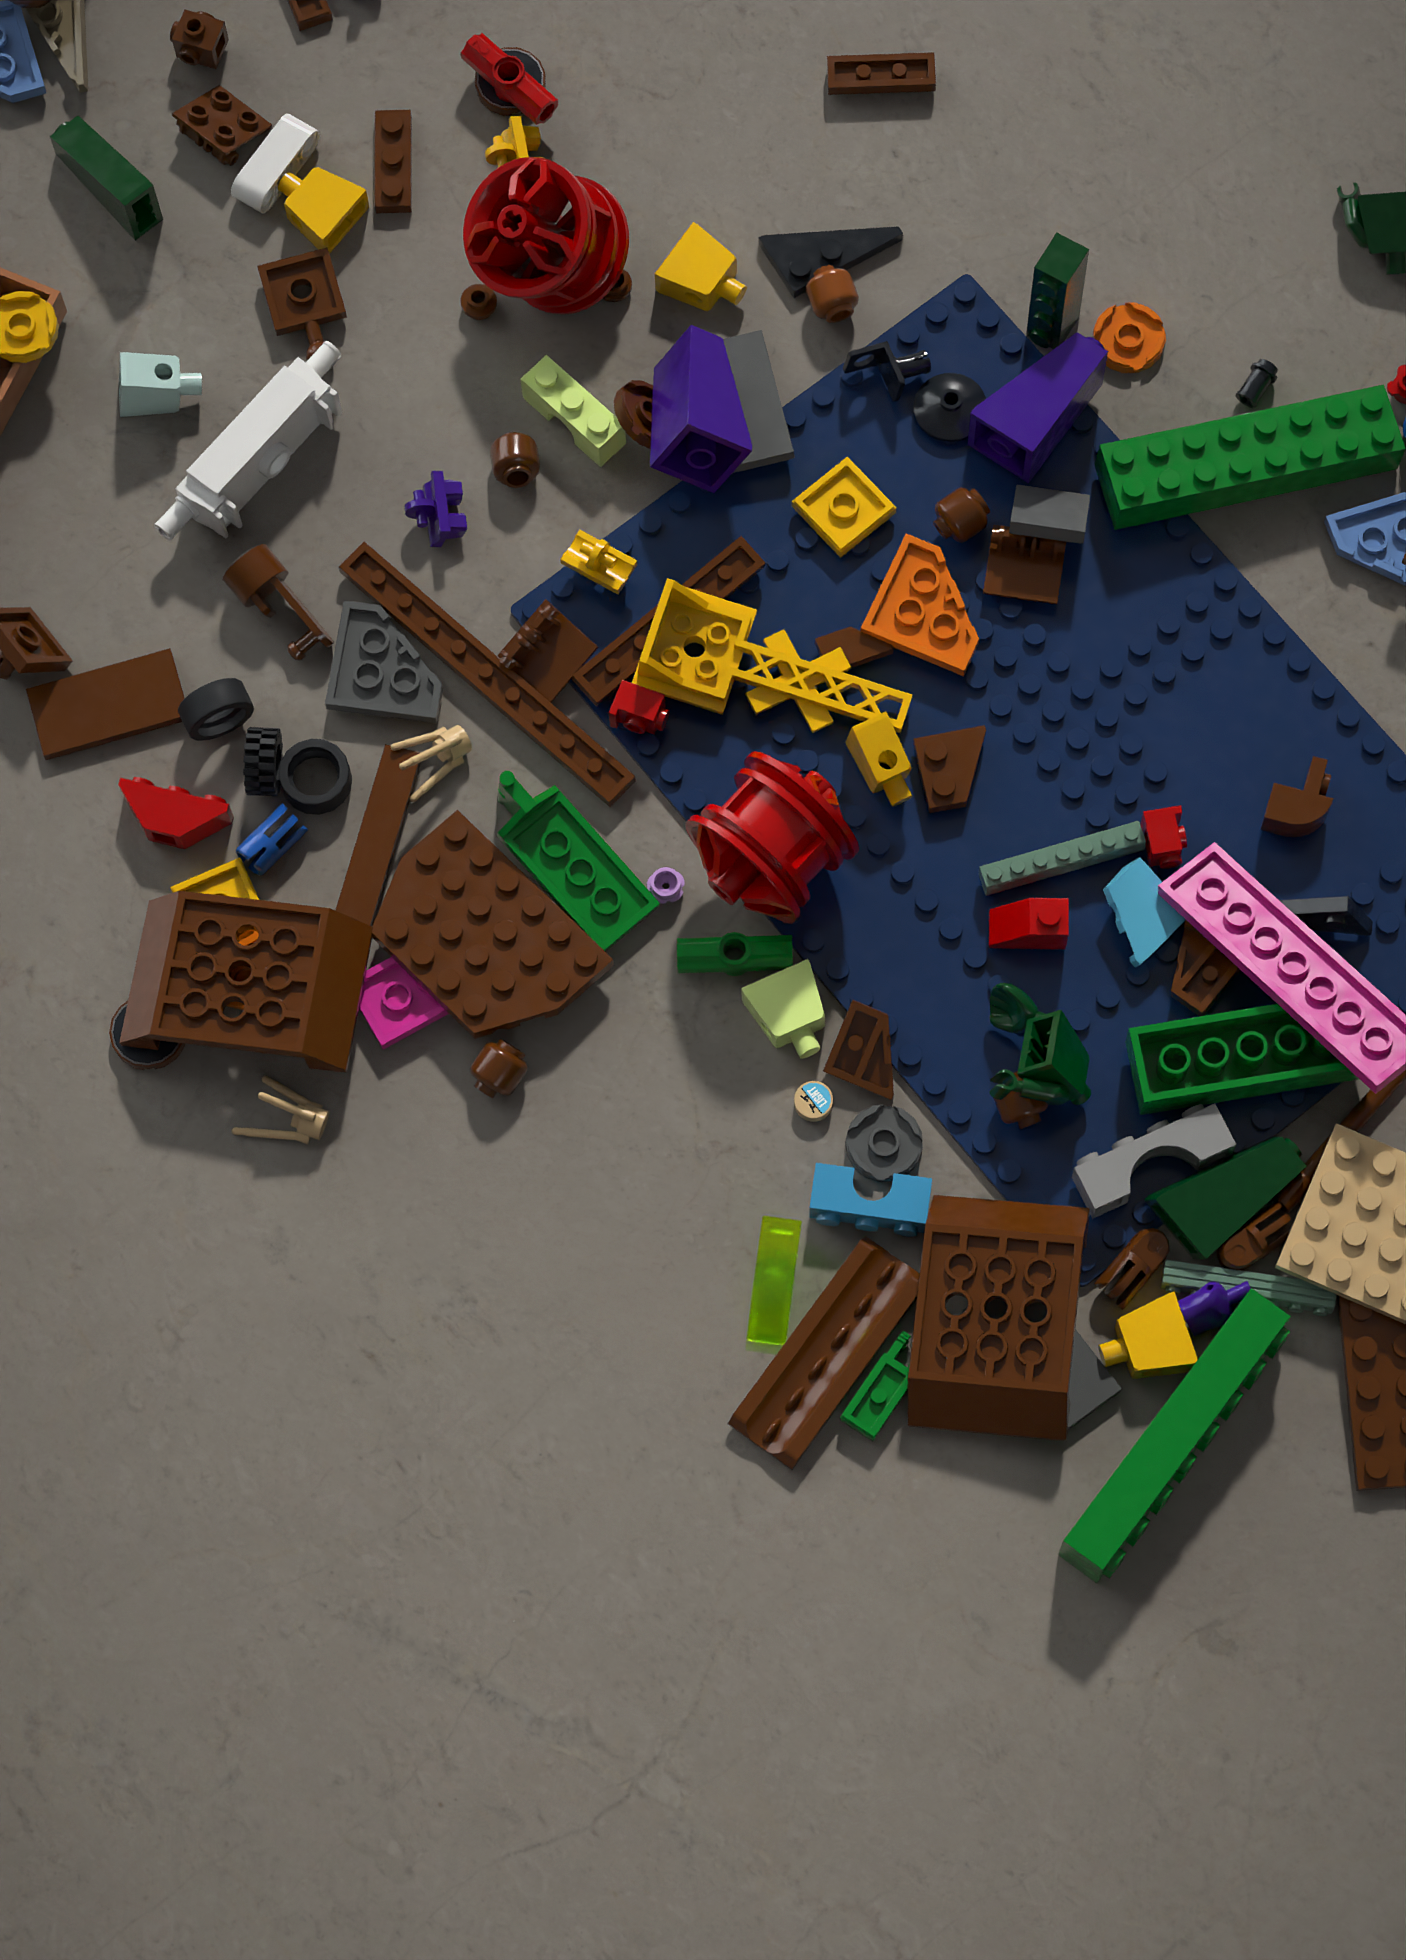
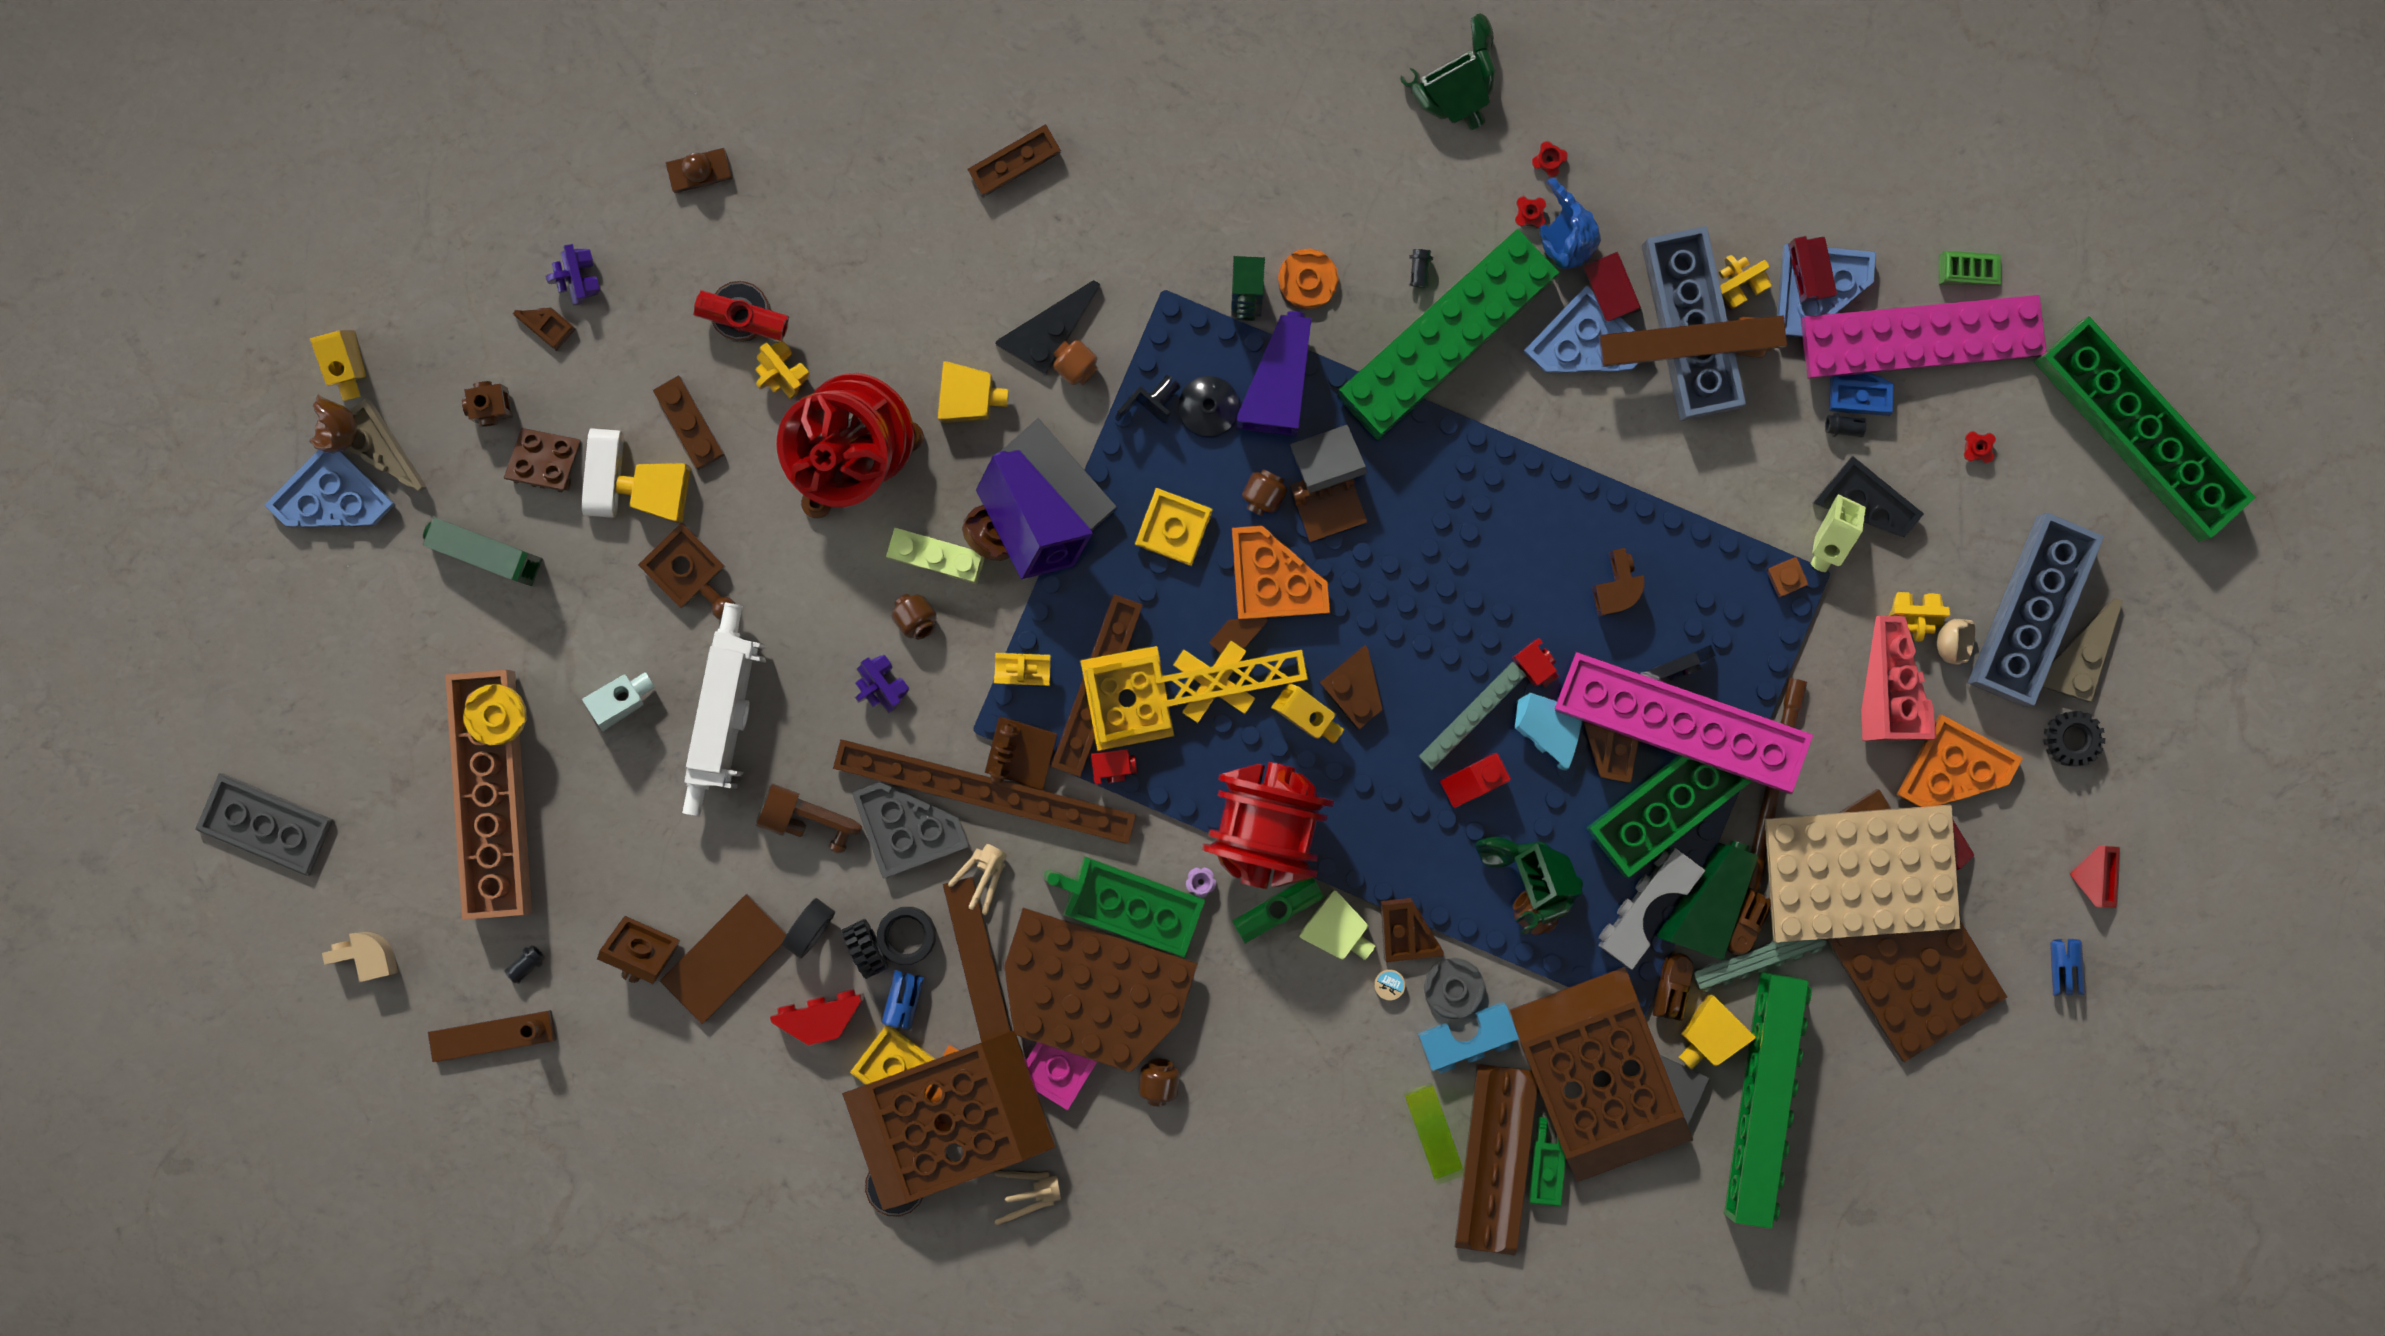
camera: 25 degrees left, 15 degrees up
(1211, 1306) = (1743, 989): dark purple piece -> none

